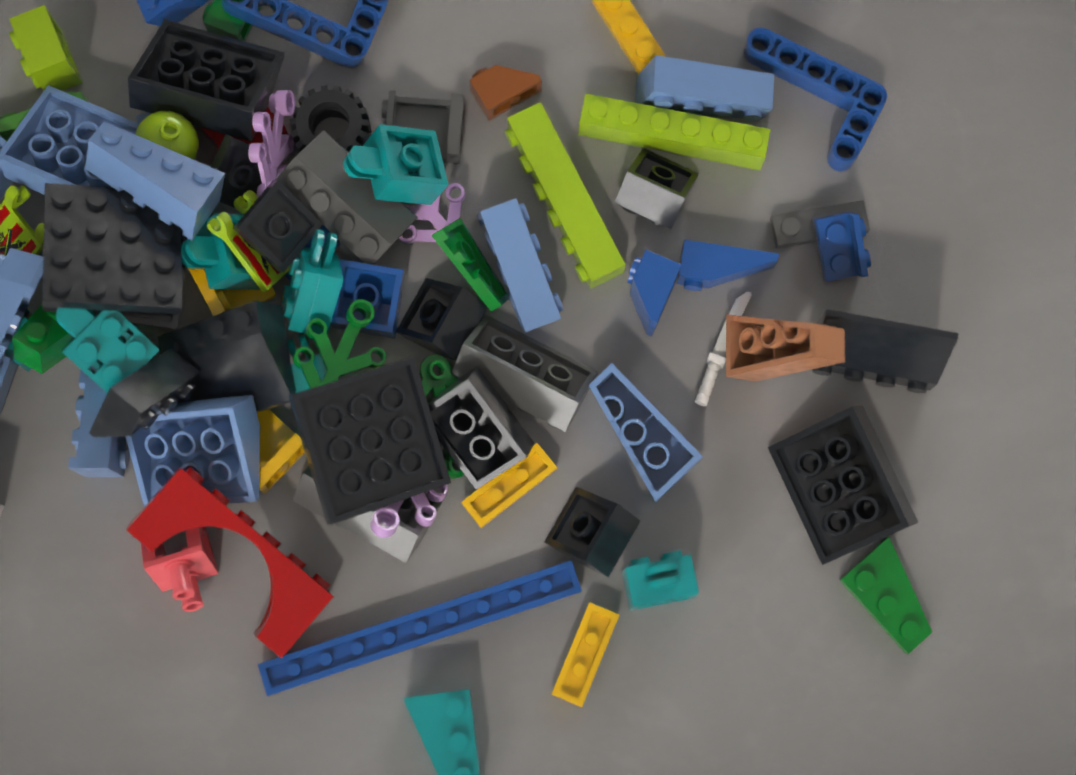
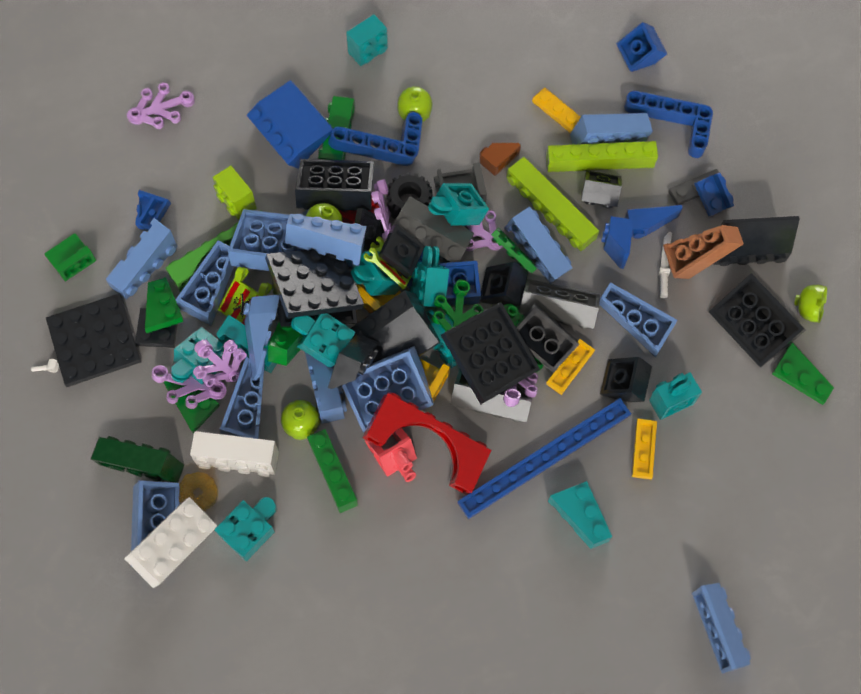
camera: 15 degrees left, 10 degrees down
(45, 461) = (300, 419): none -> lime cylinder
(74, 563) = (332, 471): none -> green brick
(943, 478) = (811, 302): none -> lime cylinder

